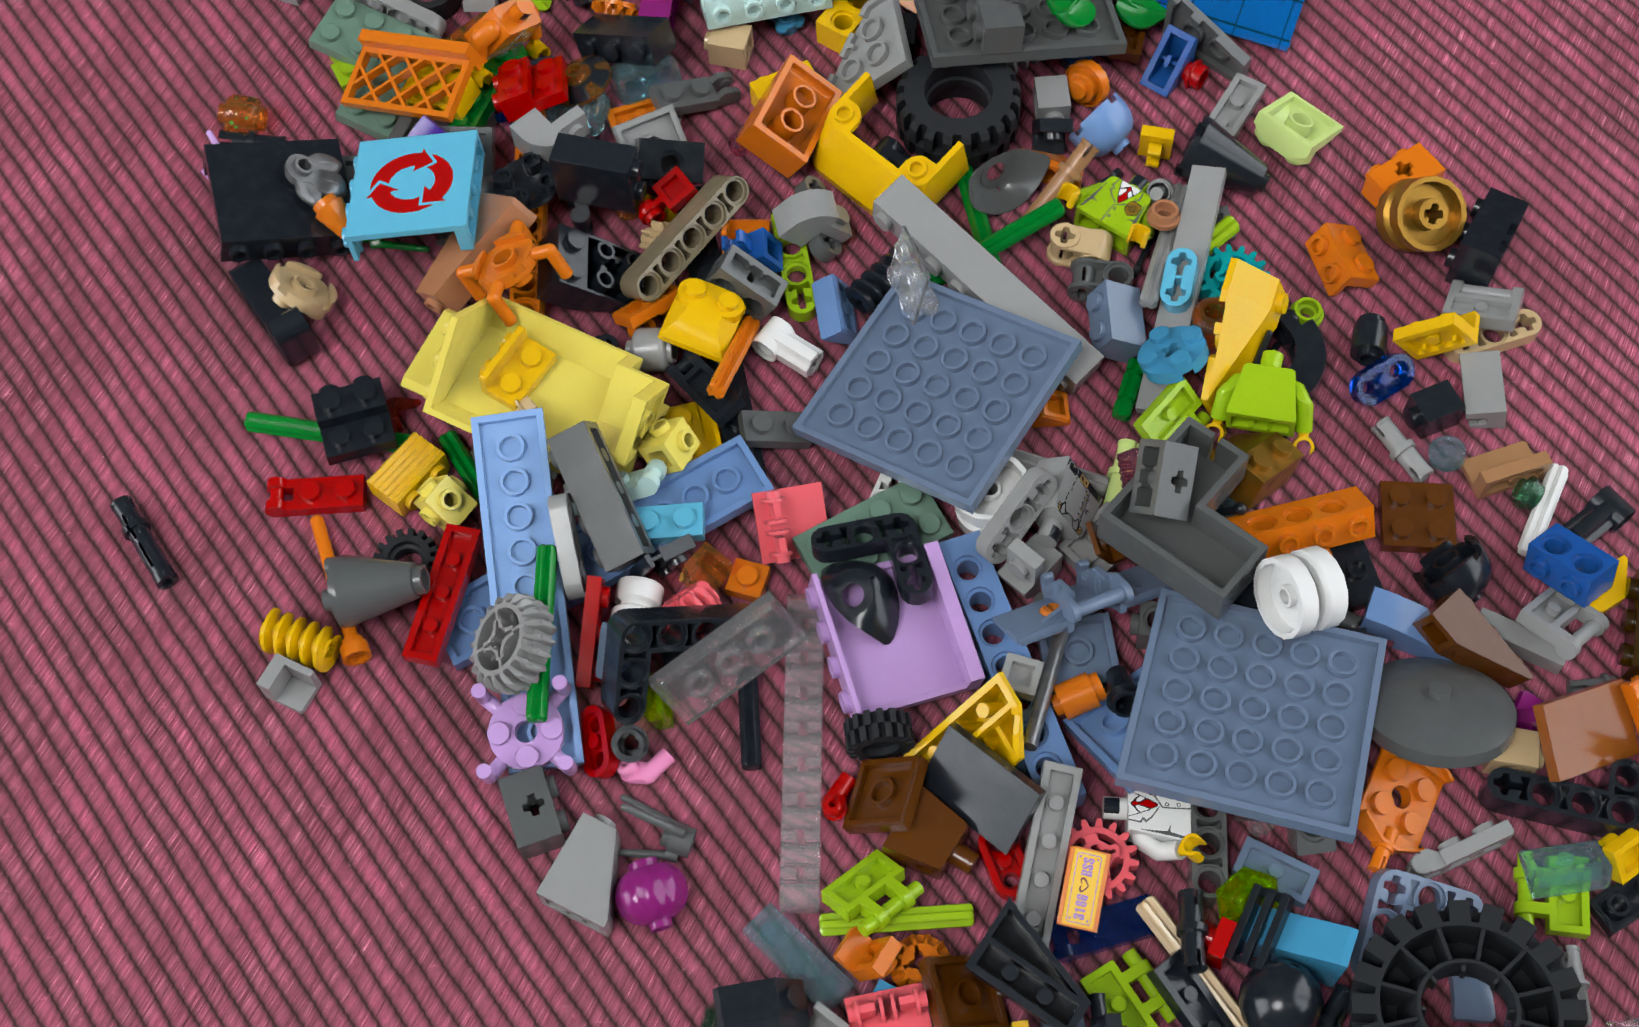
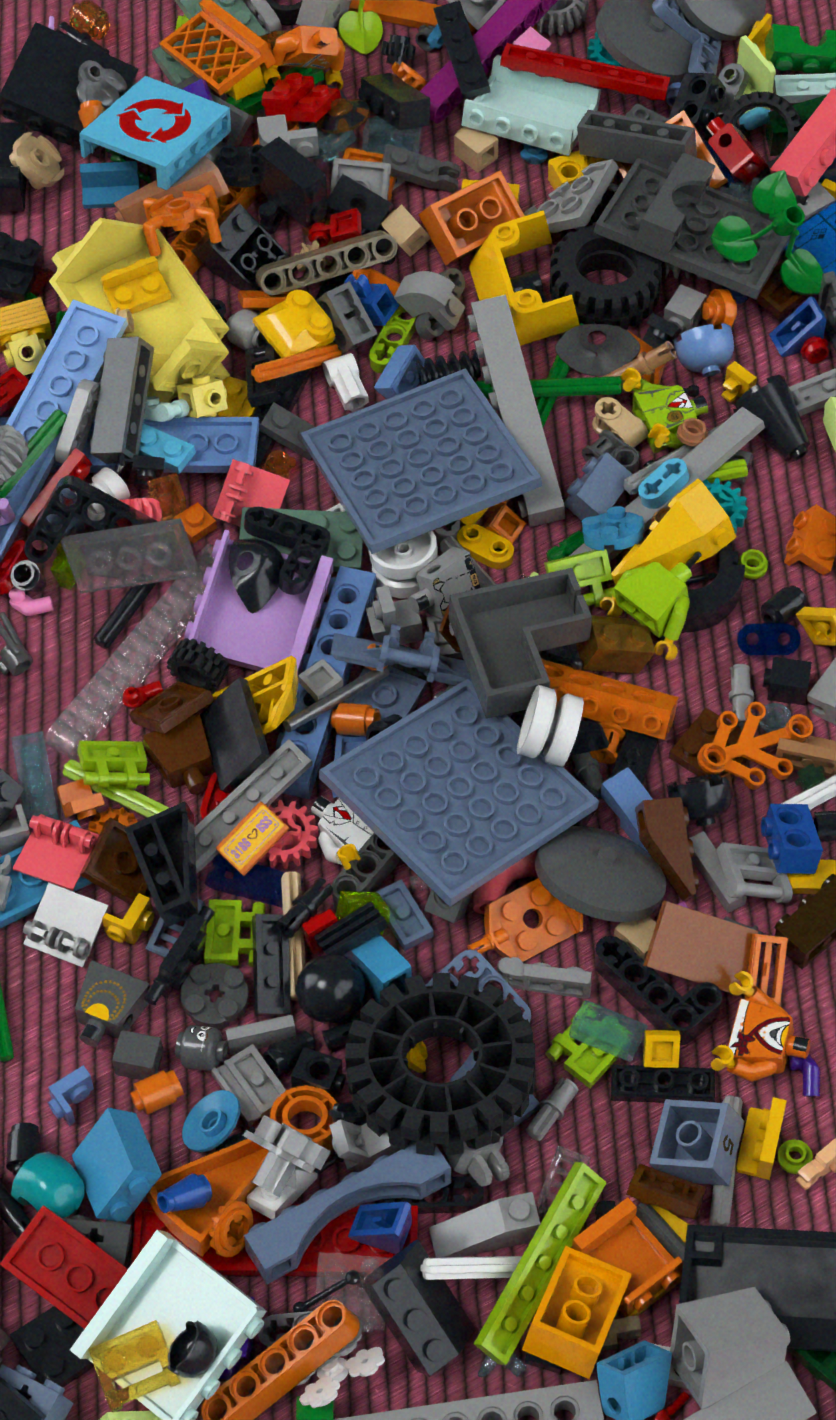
camera: 30 degrees right, 5 degrees down
(390, 274) = (107, 183): none -> dark azure panel
(728, 160) = (405, 230): none -> tan brick
(786, 463) = (279, 458): none -> clear orange plate
(911, 279) = (460, 375): clear hinge -> none
(1024, 489) = (406, 558): light grey beam -> none
(1049, 439) = (484, 544): none -> yellow plate
(1160, 189) = (711, 416): light grey cylinder -> none
(1163, 479) = (497, 602): dark grey brick -> none
(1479, 454) = (751, 747): none -> orange plant

